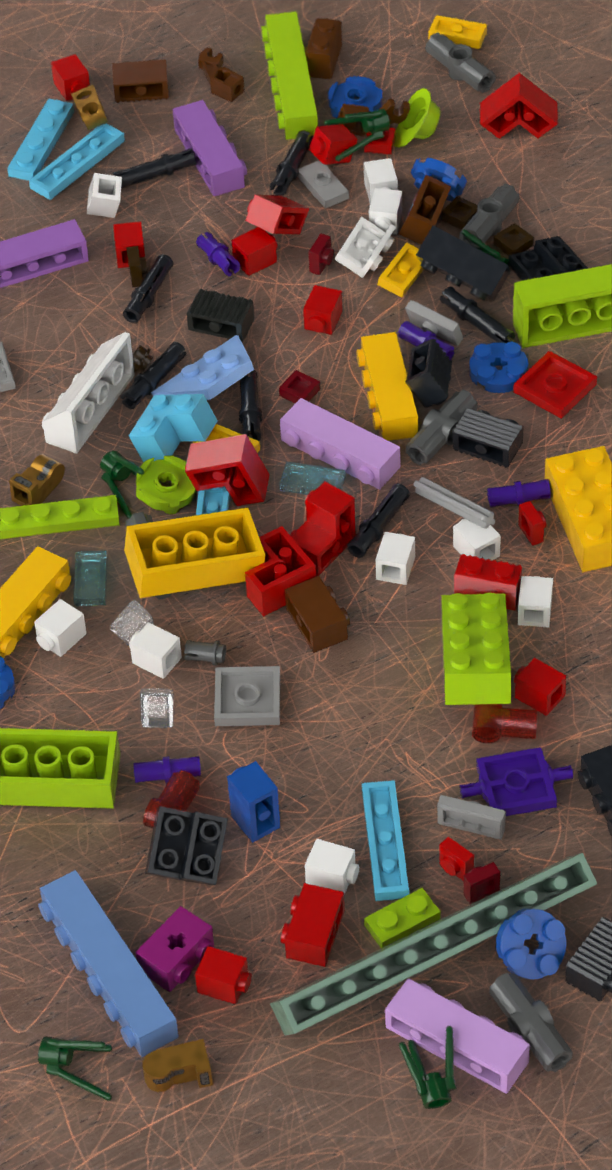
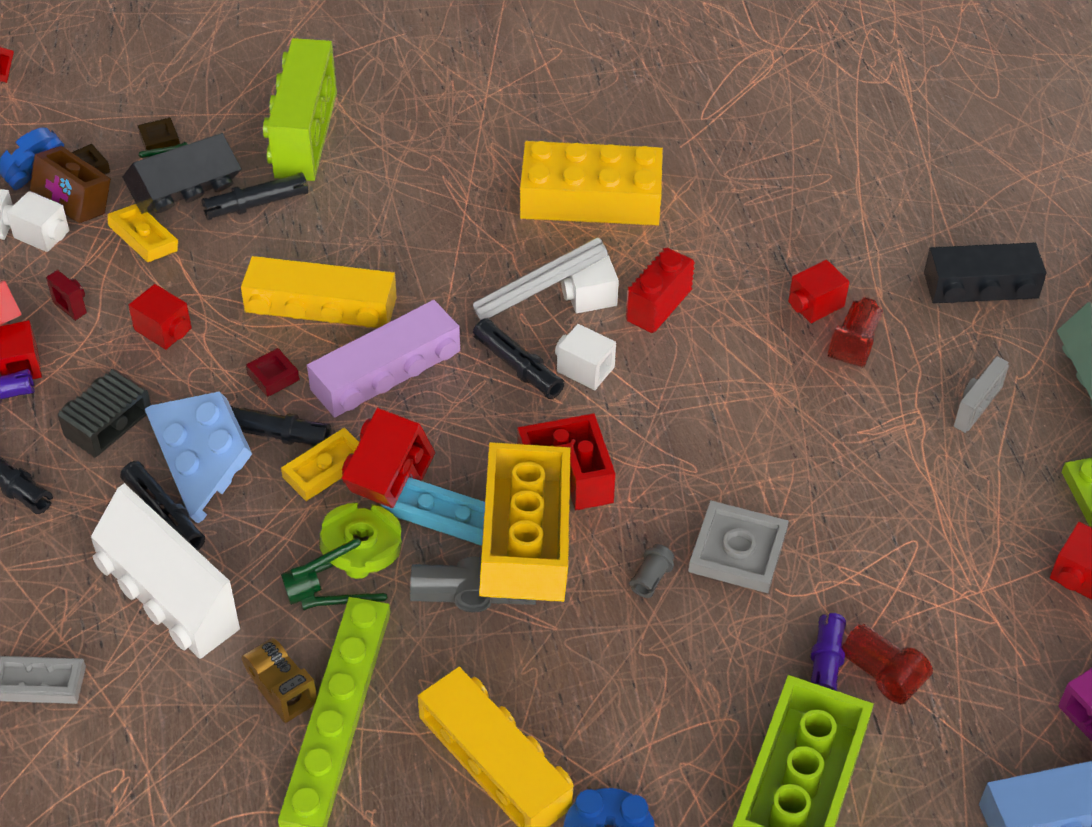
camera: 75 degrees left, 0 degrees up
(60, 628) = (555, 712): white brick -> none
(90, 578) = (489, 663): clear light blue plate -> none
(130, 621) = (574, 633): clear slope -> none
(155, 650) = (634, 618): white brick -> none
(157, 708) = (727, 642): clear slope -> none
(172, 421) = (268, 497): medium azure brick -> none
(186, 846) = (963, 660): black slope -> none
(253, 801) = (925, 570): blue brick -> none
(305, 478) = (425, 397): clear light blue plate -> none
(317, 614) = (644, 446): reddish brown brick -> none
(328, 525) = (518, 391): red brick -> none
(331, 866) = (1021, 533): white brick -> none
(363, 247) = (85, 251): white bracket -> none
(385, 840) = (991, 476): medium azure plate -> none
(417, 336) = (266, 245): dark purple pin -> none
(429, 373) = (331, 245): black brick -> none
(435, 322) = (245, 229): light grey plate -> none
(439, 427) = (408, 263): dark grey piece -> none
(455, 858) = (1036, 422): red plate -> none
(475, 649) = (764, 317): lime brick -> none
(481, 882) = (1072, 410): dark red plate -> none
(487, 356) = (329, 188): blue plate -> none
(488, 437) = (444, 234): black brick -> none
(491, 214) = (108, 137): dark grey piece -> none
(517, 781) = (940, 347): dark purple plate -> none
(518, 493) = (535, 235): dark purple pin -> none
(531, 523) = (584, 230): red plate -> none
(535, 601) = (708, 259): white brick -> none
(547, 258) = (211, 116): black slope -> none
(555, 384) = (393, 165): red plate -> none

